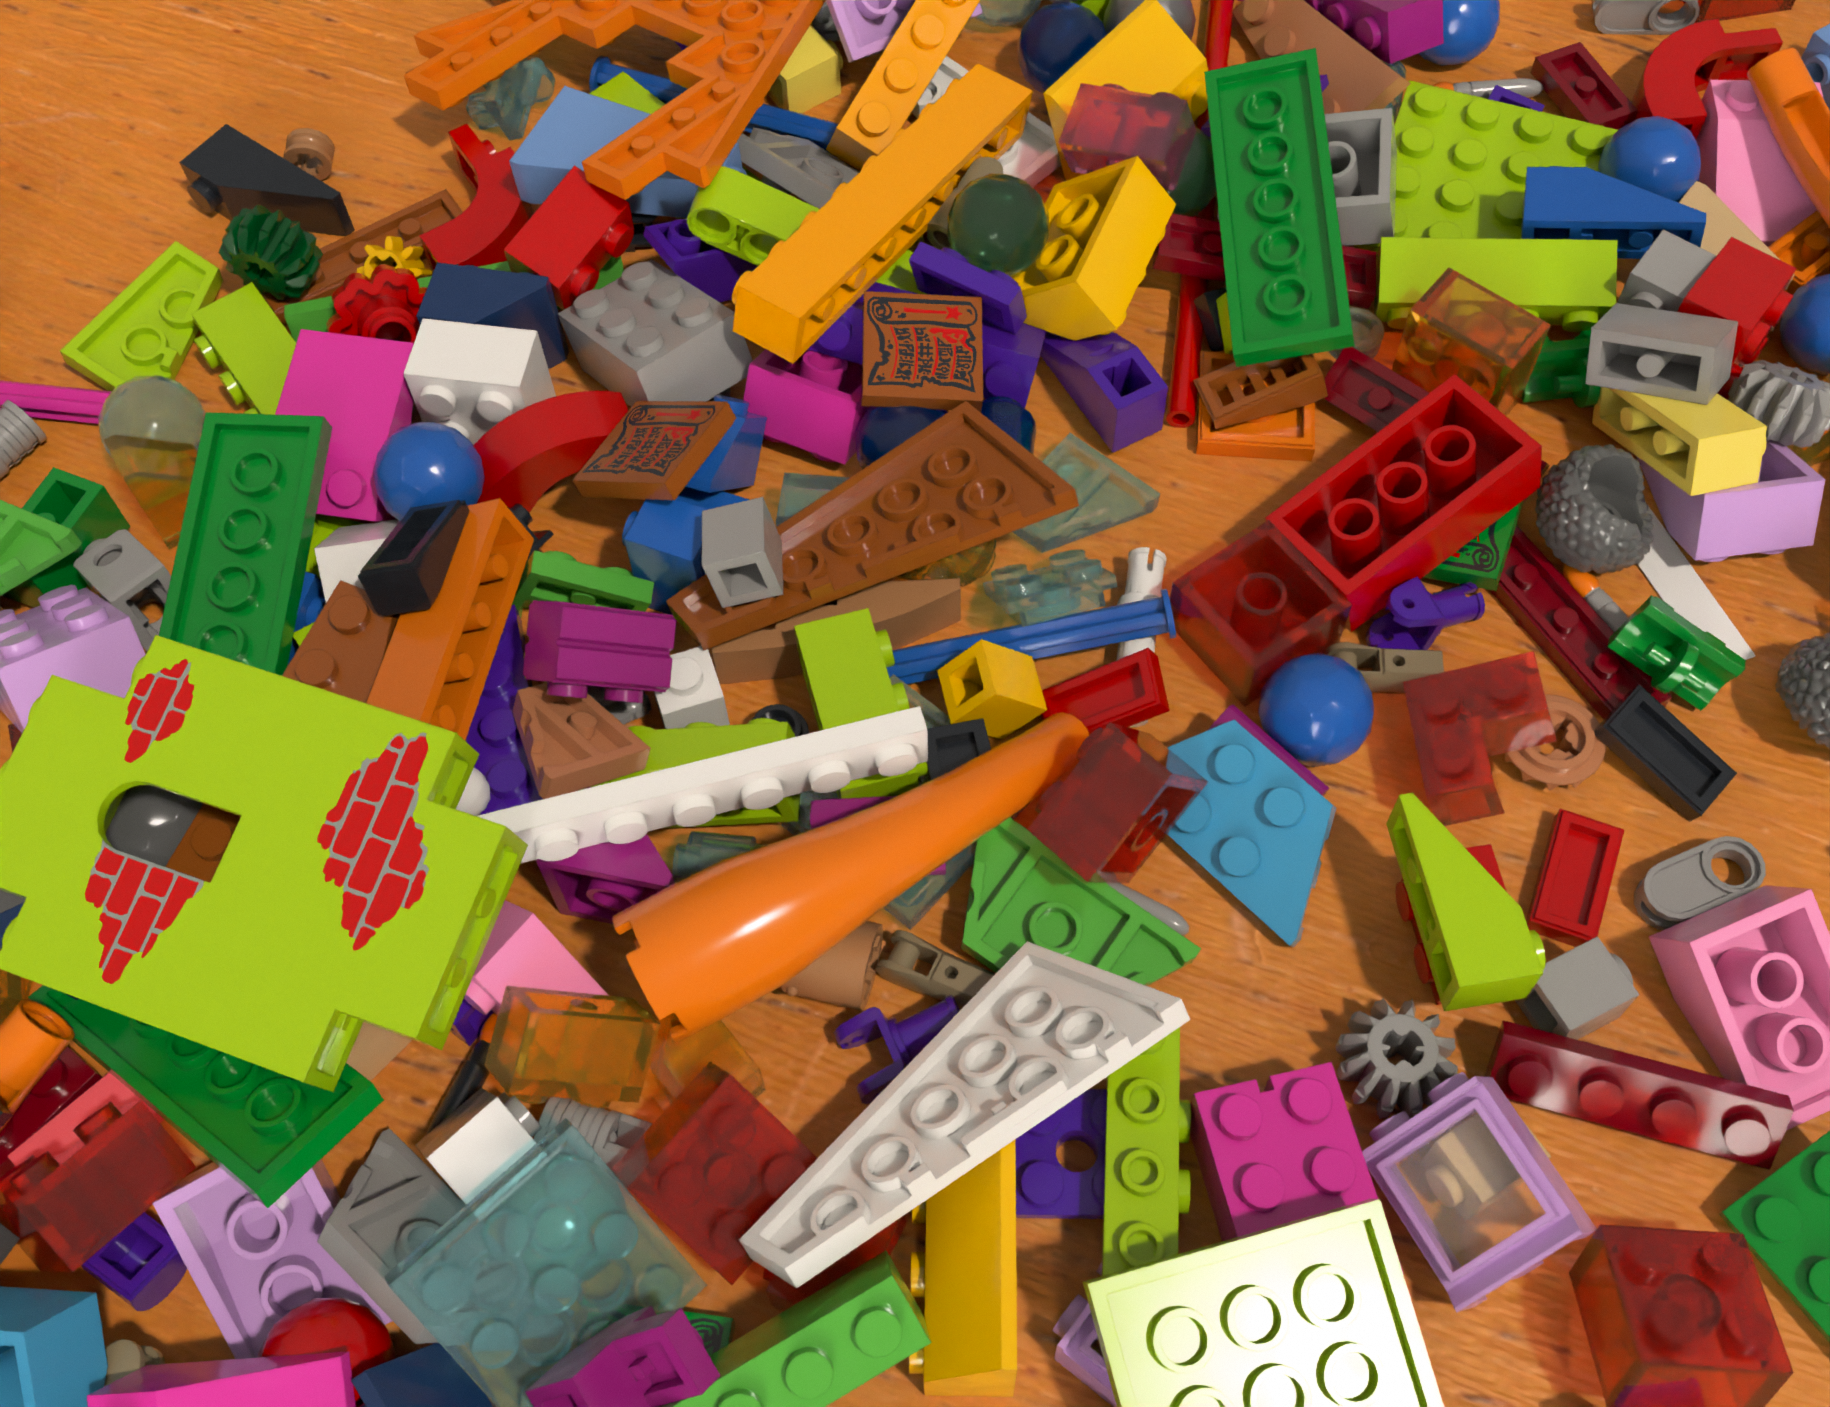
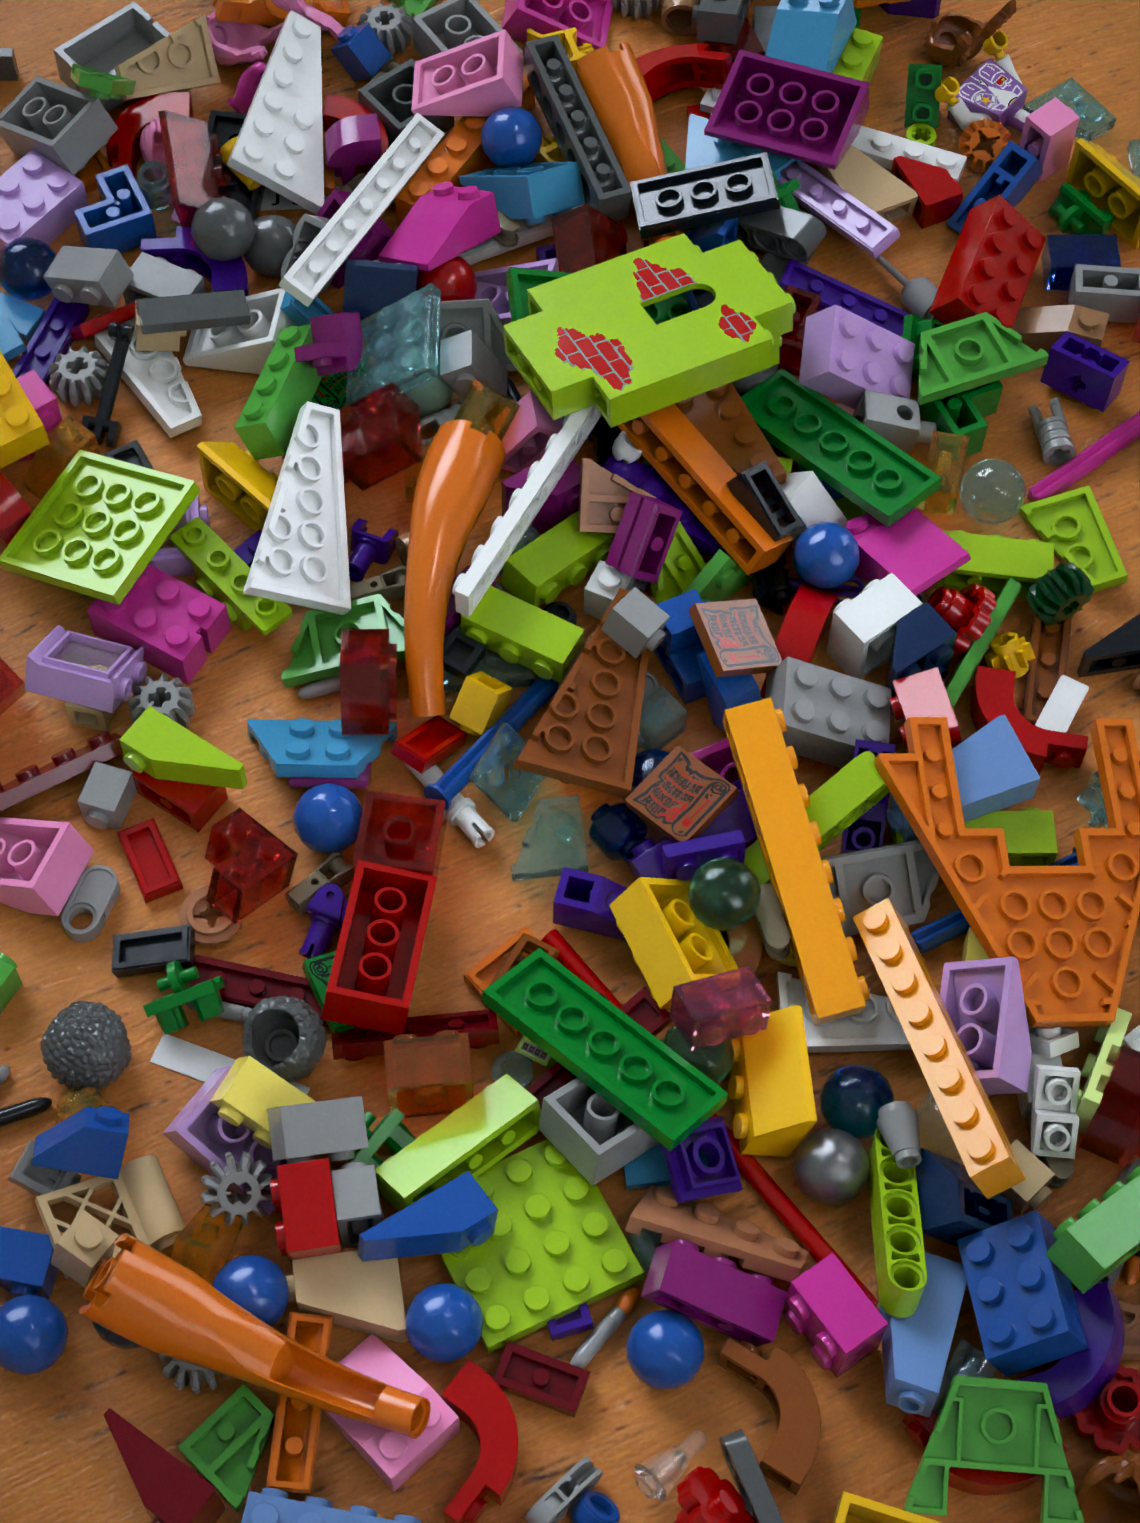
camera: 130 degrees right, 0 degrees up
(417, 199) = (1062, 705): none -> white sticker

